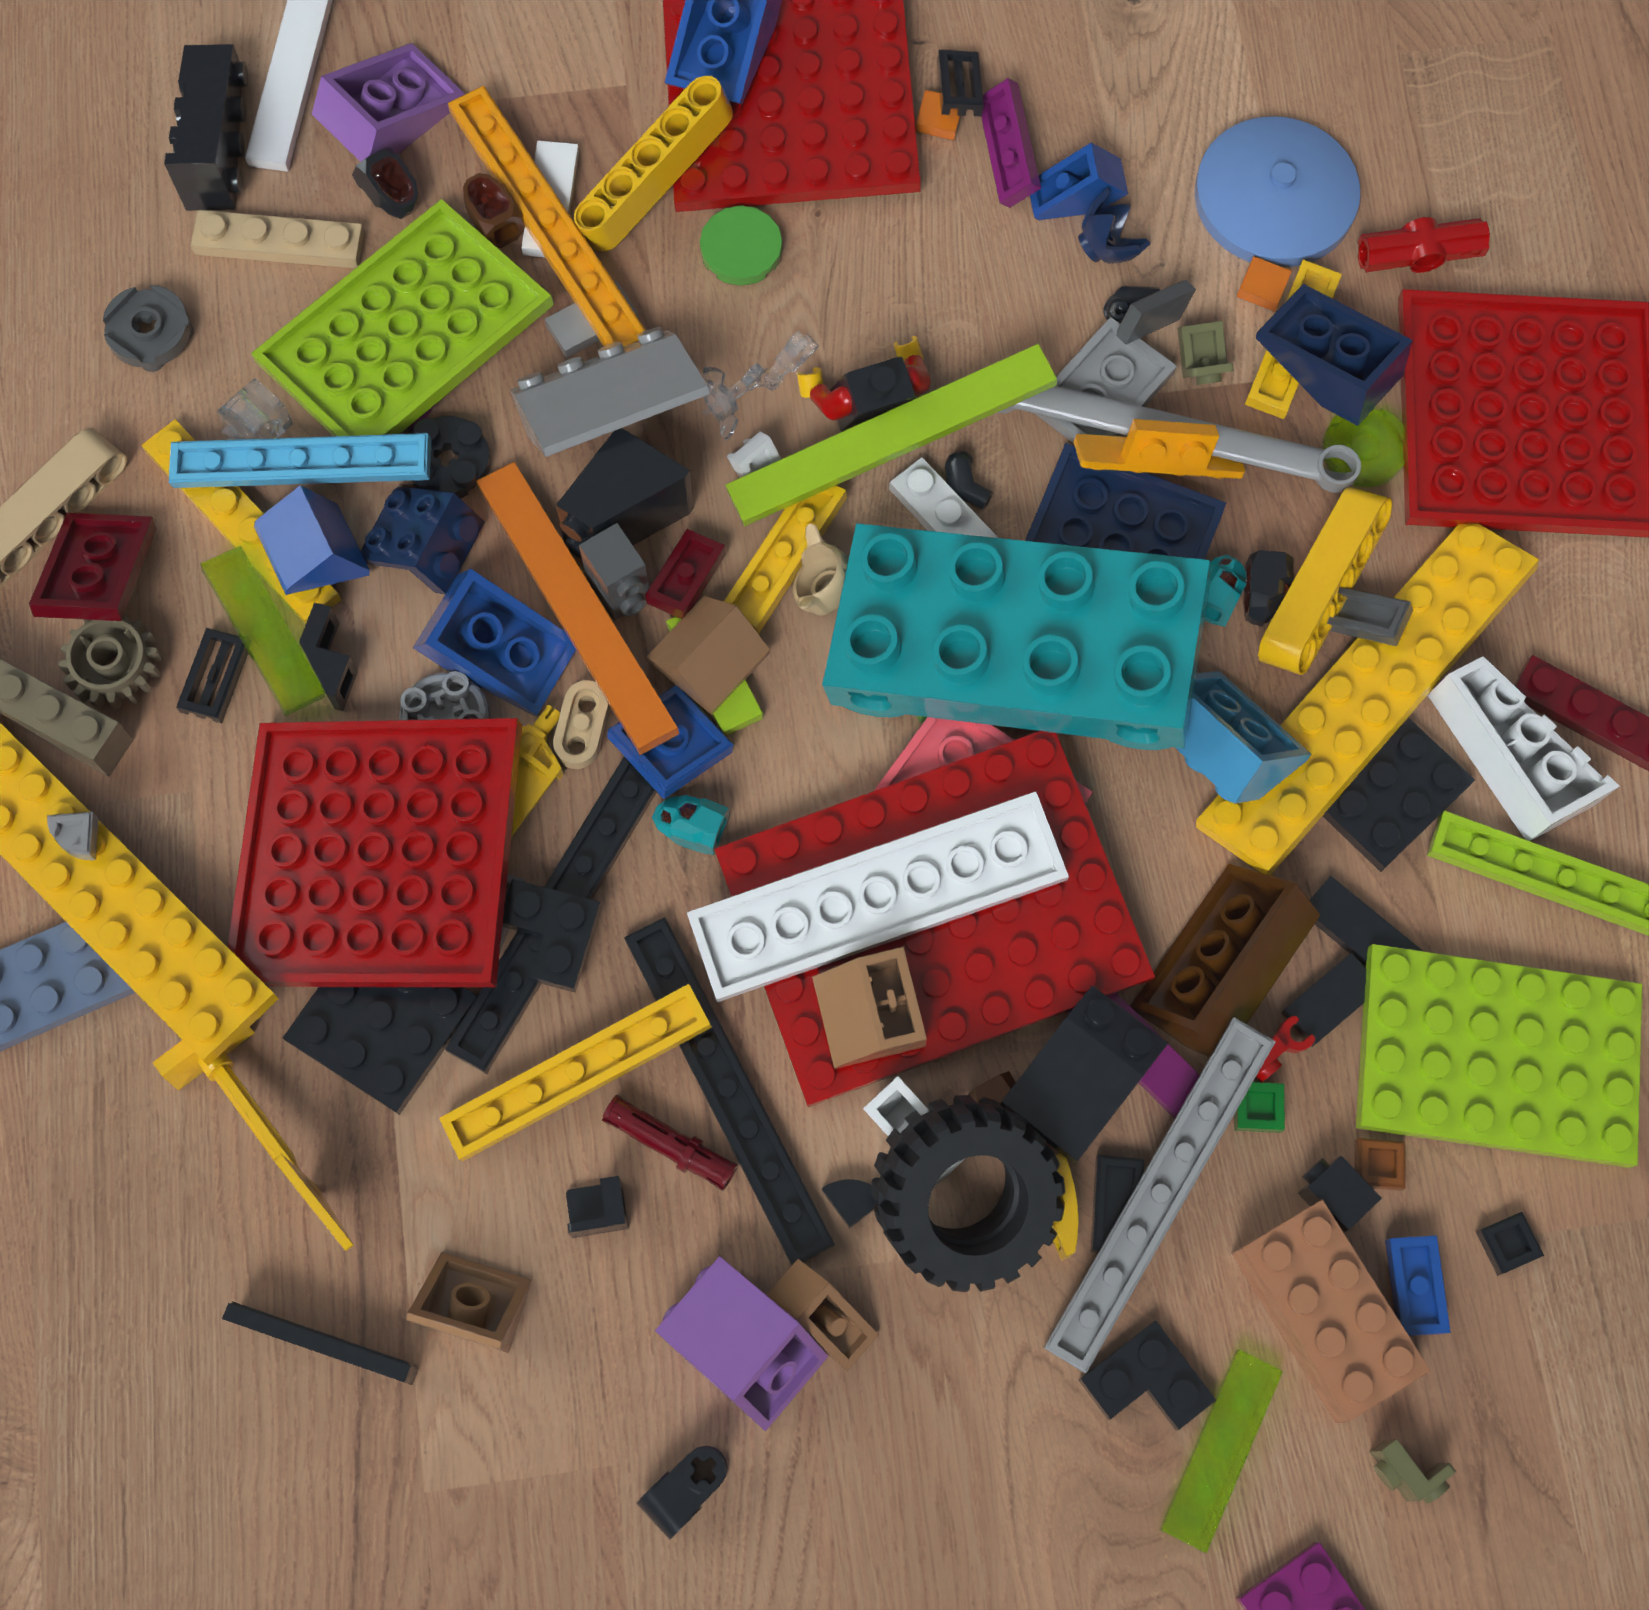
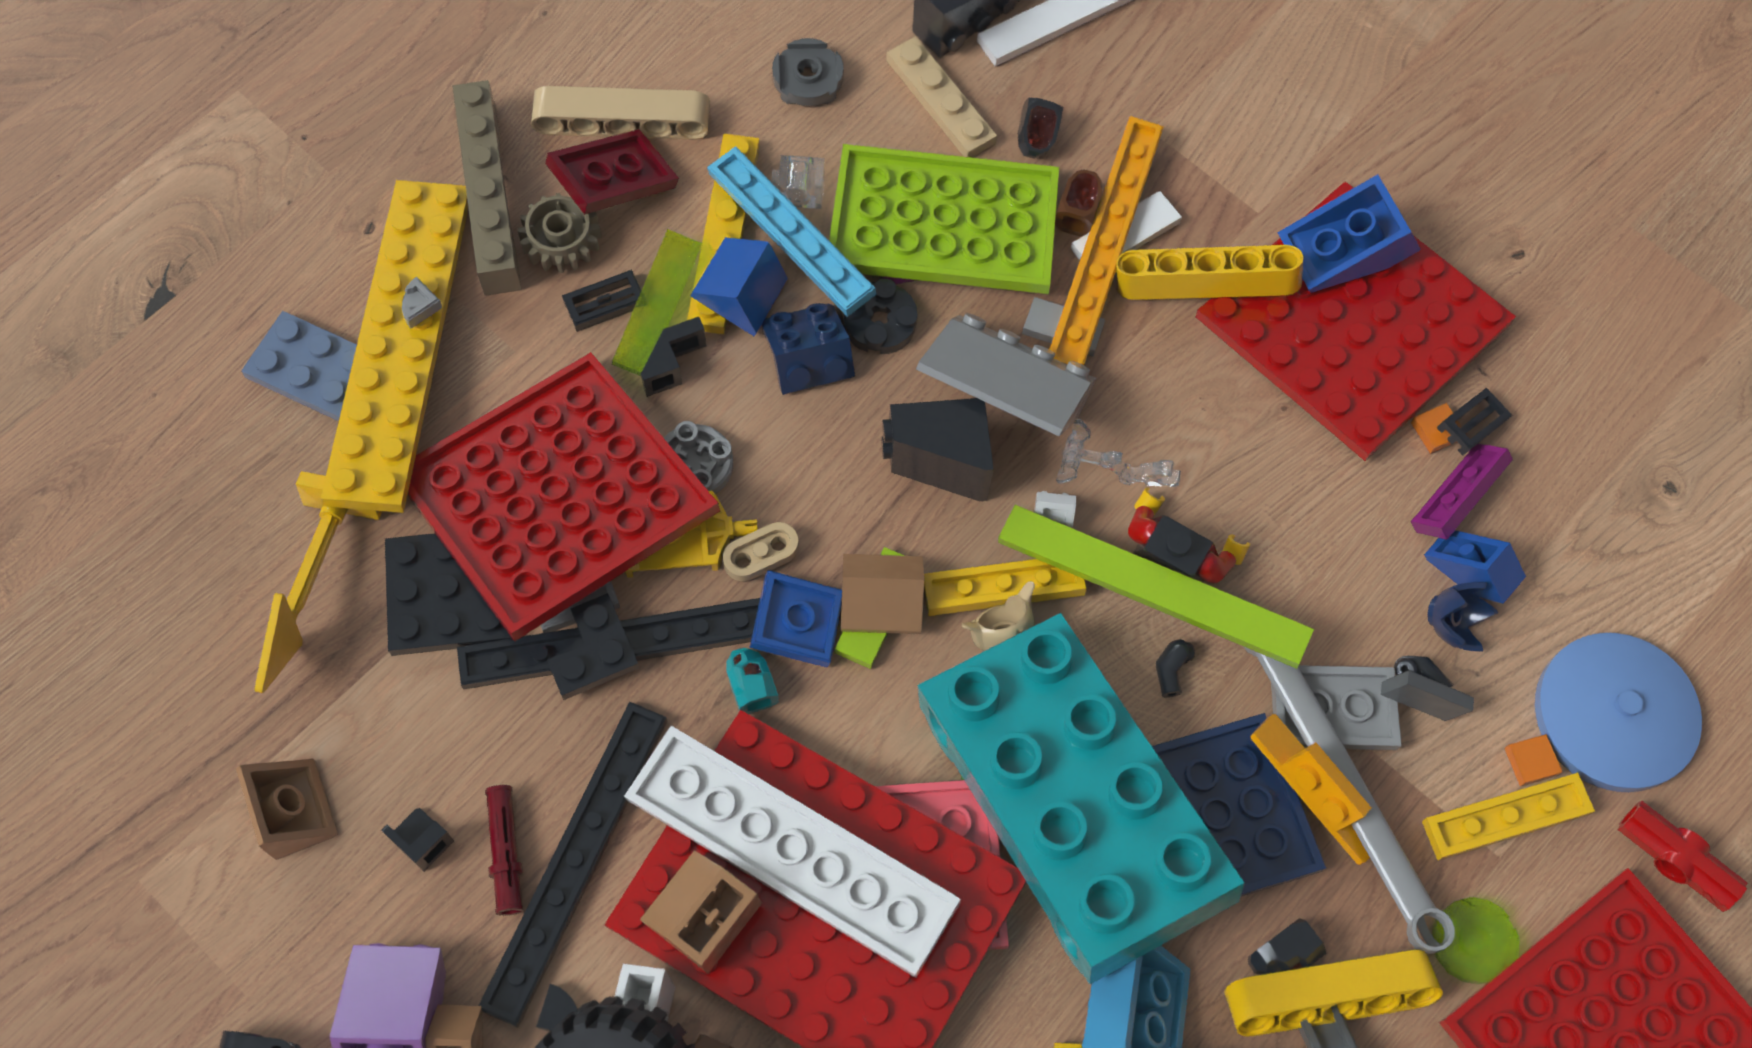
camera: 50 degrees right, 5 degrees down
(320, 1342) = (190, 730): black tile -> none
(384, 101) = (1096, 79): medium lavender slope -> none
(496, 642) = (772, 453): blue slope -> none
(575, 1073) = (505, 745): yellow plate -> none
(578, 609) = (838, 485): orange tile -> none
(615, 572) = (884, 484): dark grey brick -> none
(685, 574) = (929, 532): dark red plate -> none
(741, 245) = (1209, 377): bright green tile -> none
(936, 502) = (1136, 666): white plate -> none
(1203, 352) = (1432, 757): olive bracket -> none
(1226, 587) = (1255, 918): teal rock -> none
(1335, 352) = (1521, 855): dark blue slope -> none

